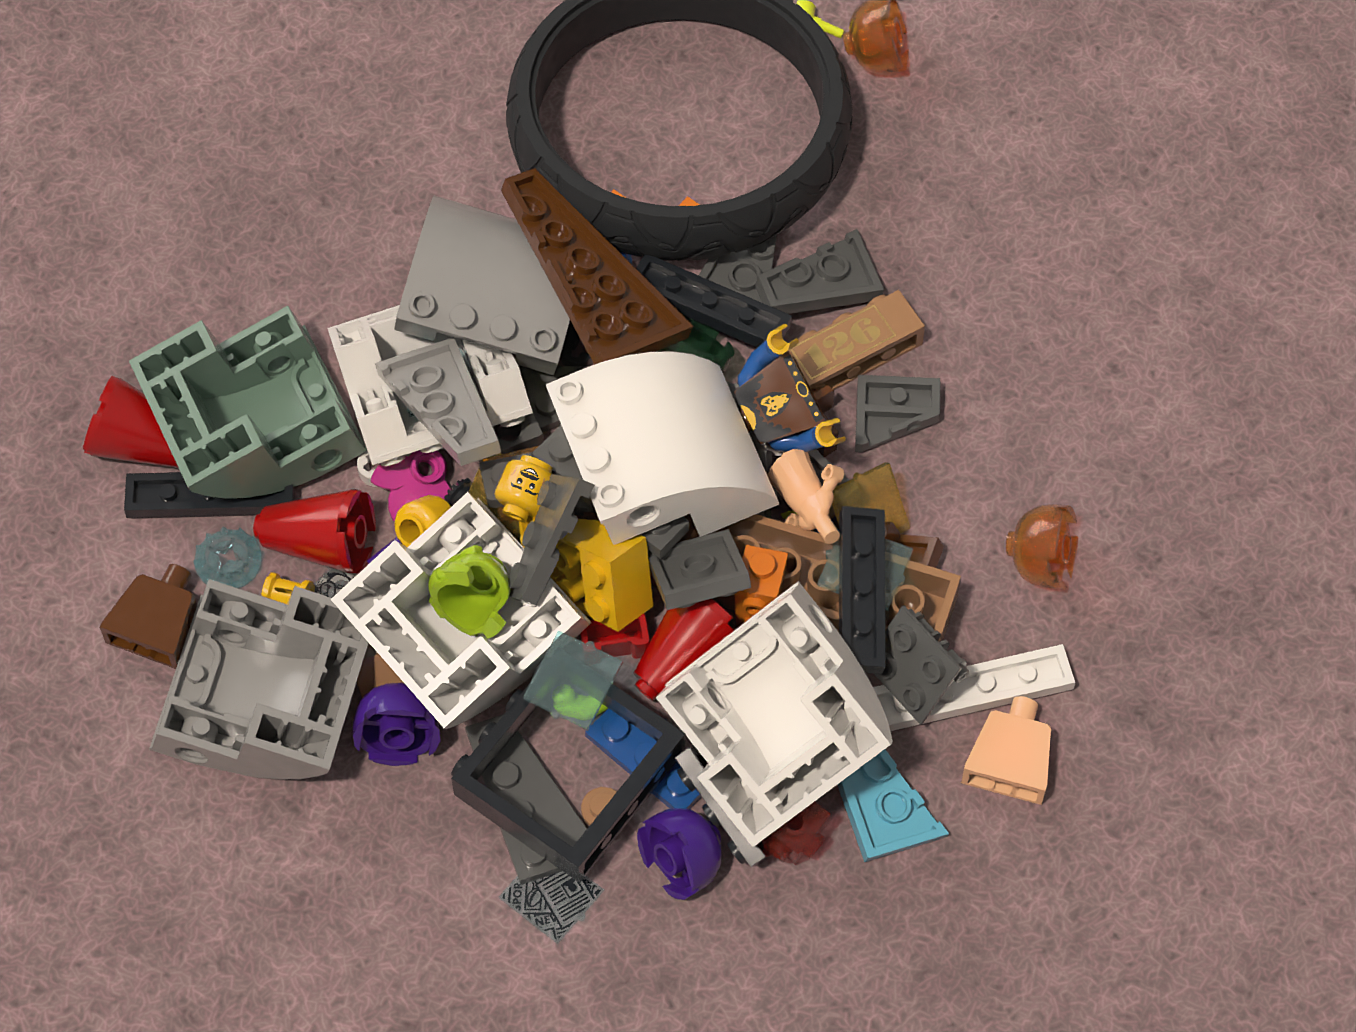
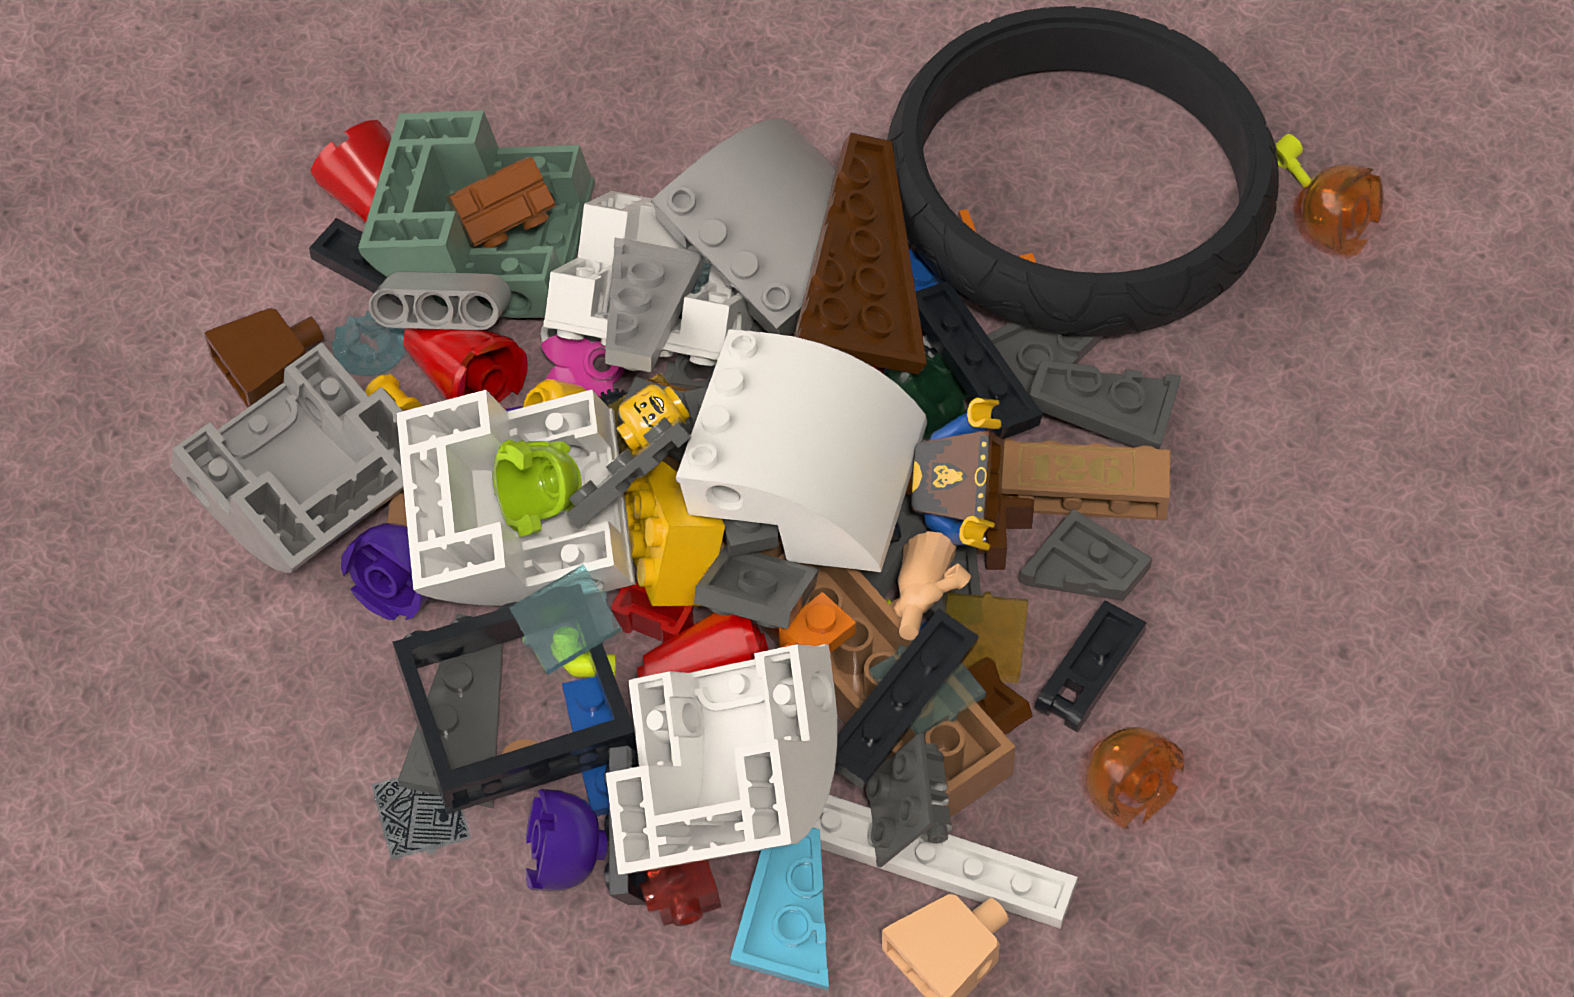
camera: 35 degrees right, 5 degrees down
(265, 384) = (502, 202): none -> dark orange brick
(266, 509) = (422, 310): none -> light grey beam
(954, 482) = (1091, 664): none -> black plate

